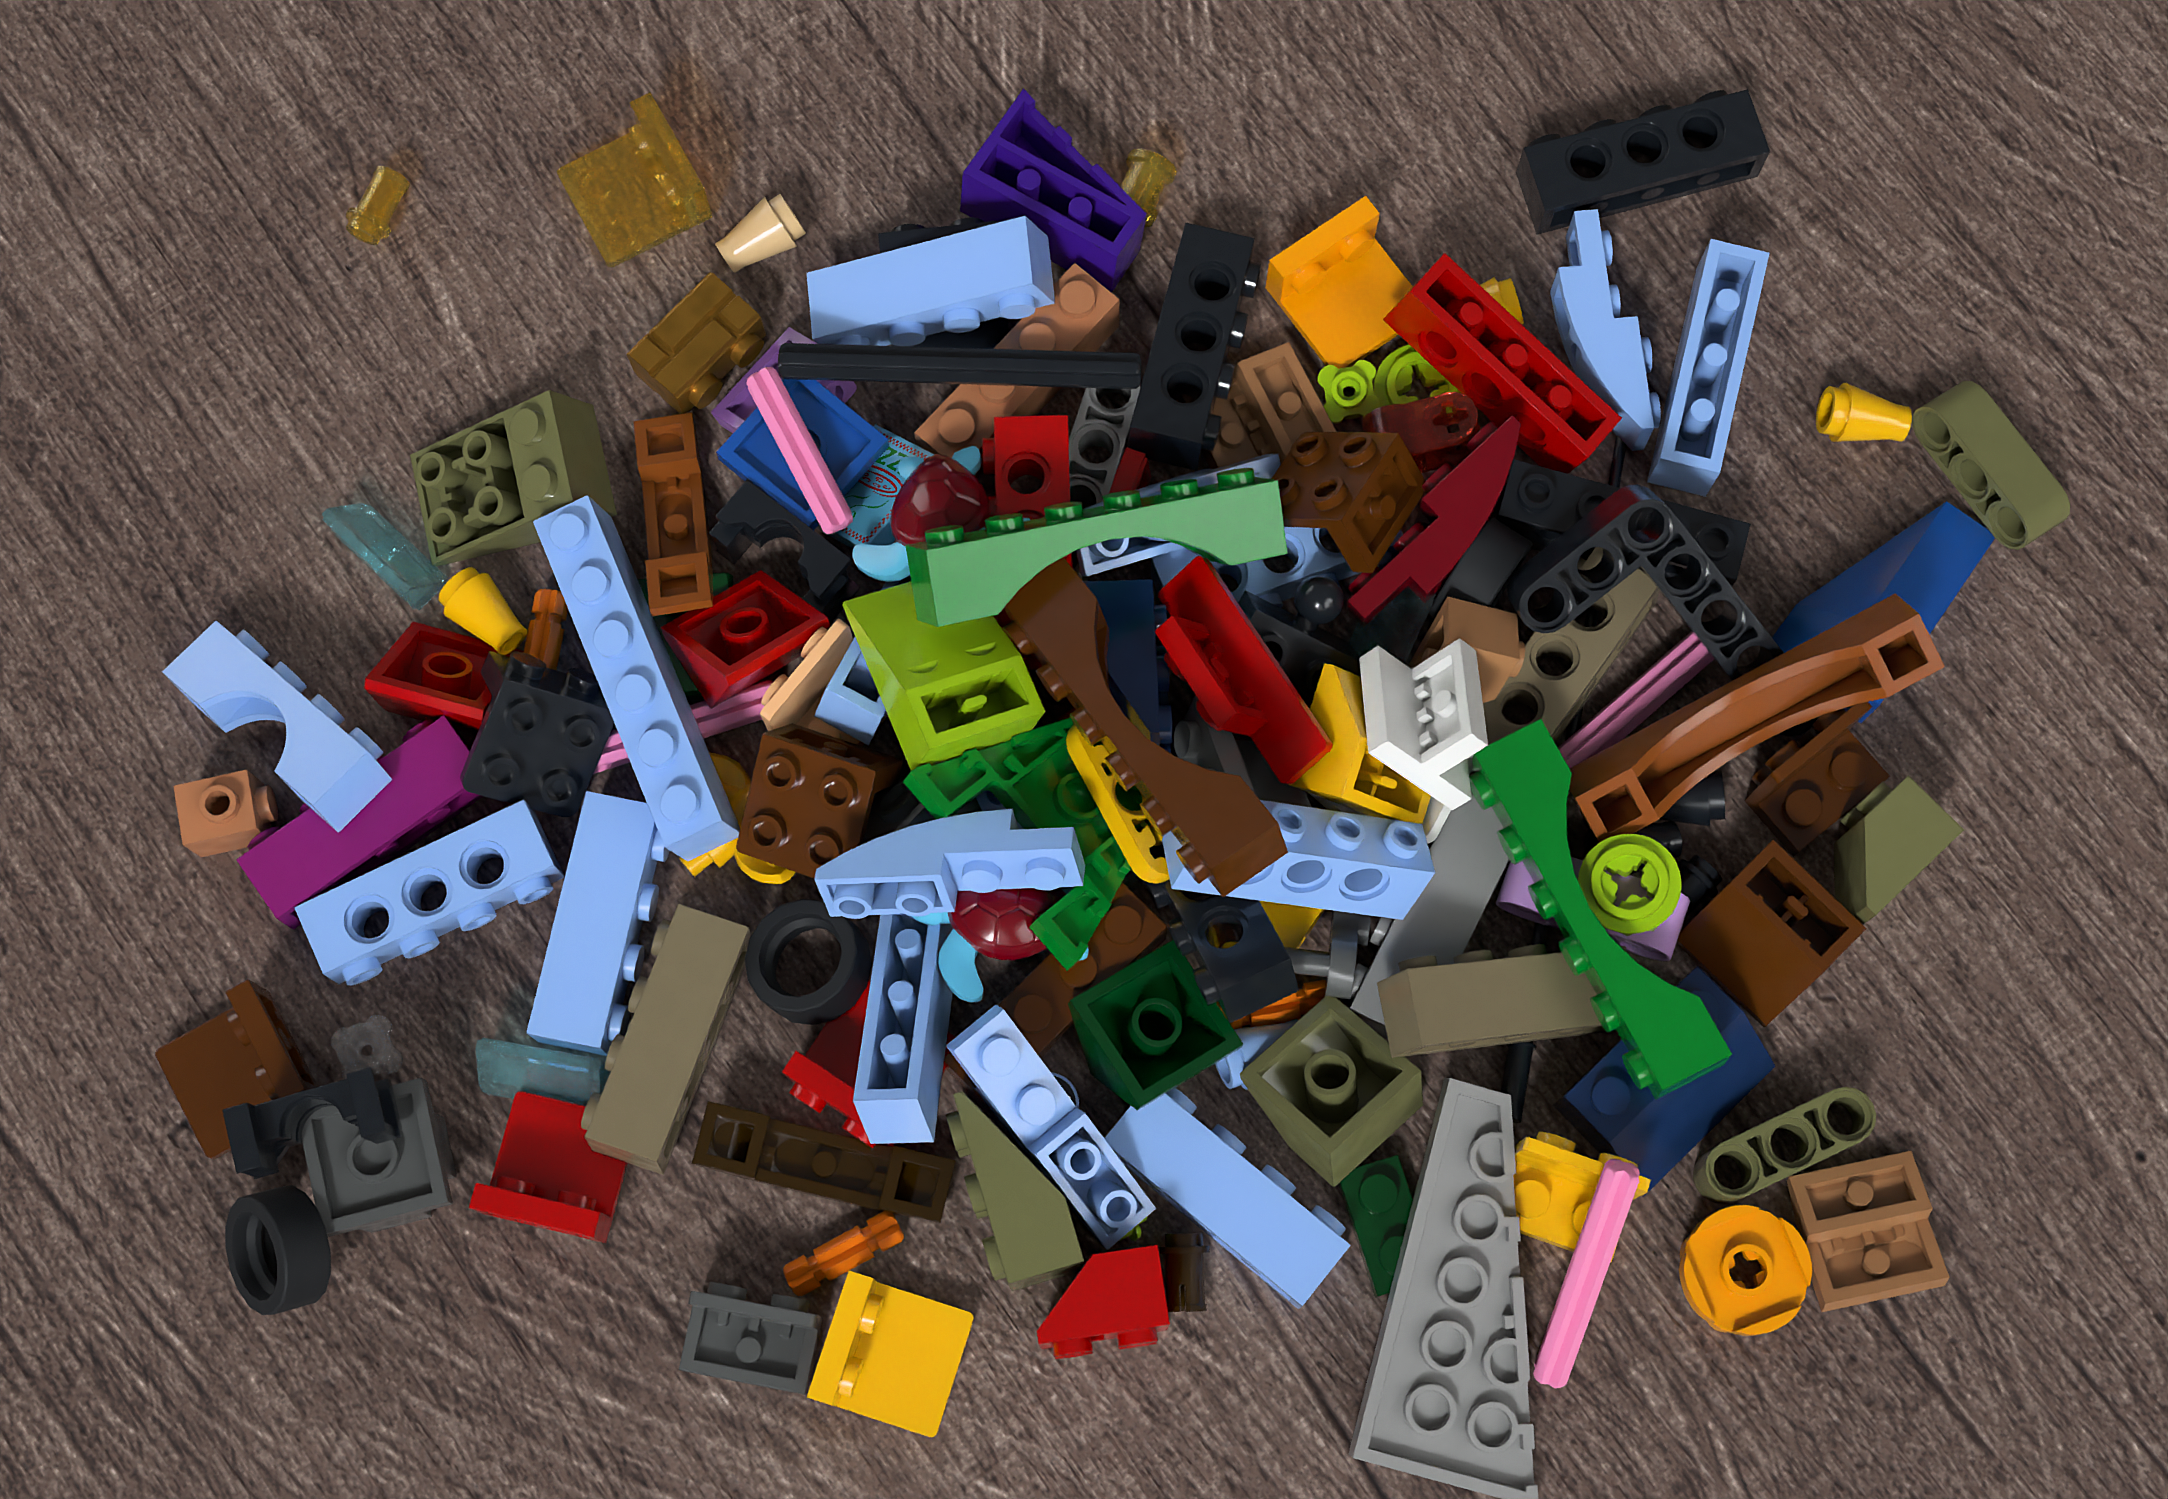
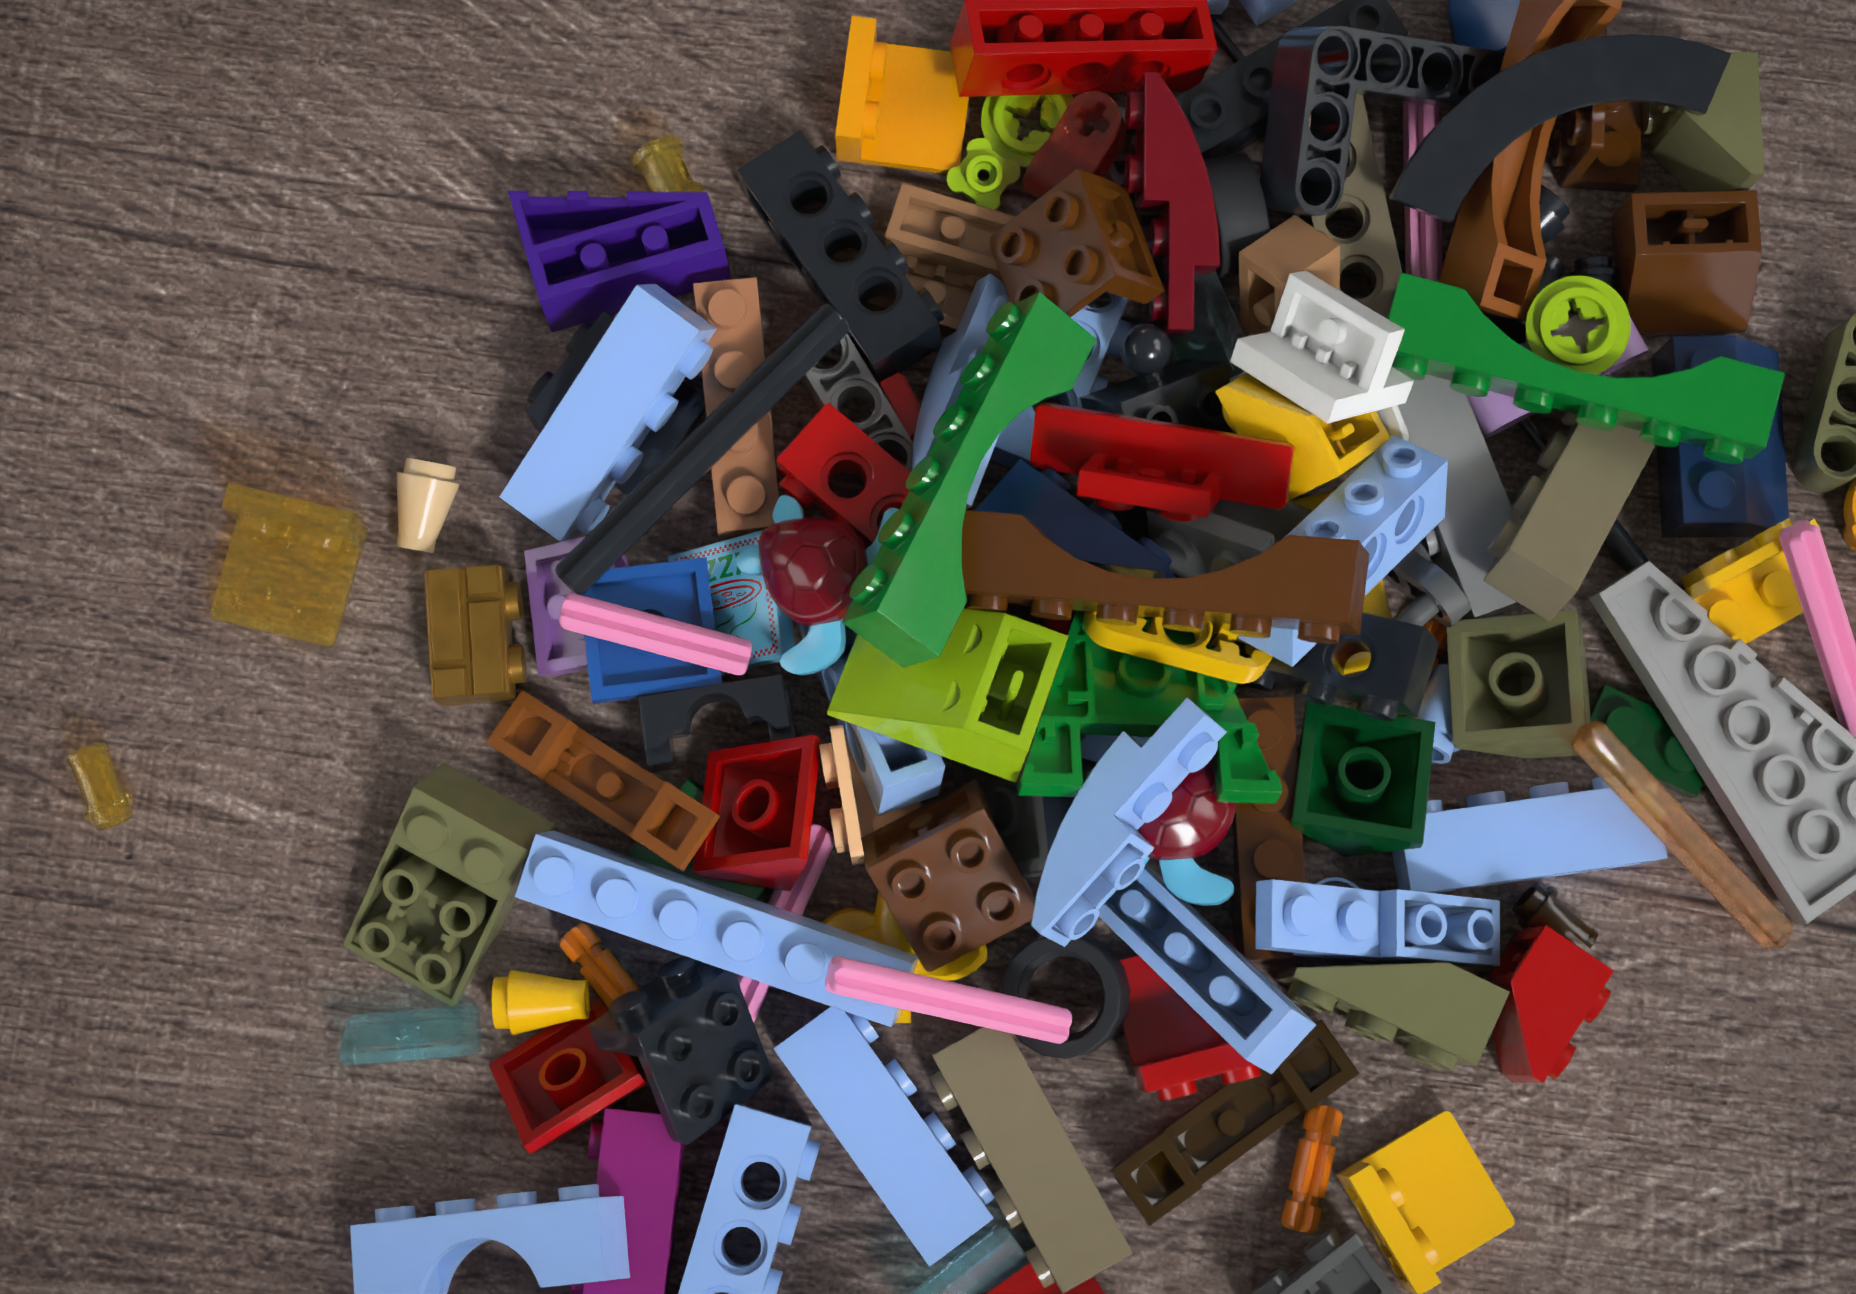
camera: 55 degrees left, 5 degrees up
(718, 868) = (947, 1000): none -> bright pink axle
(1327, 1301) = (1682, 835): none -> clear orange axle
(1781, 699) = (1546, 85): none -> black tile

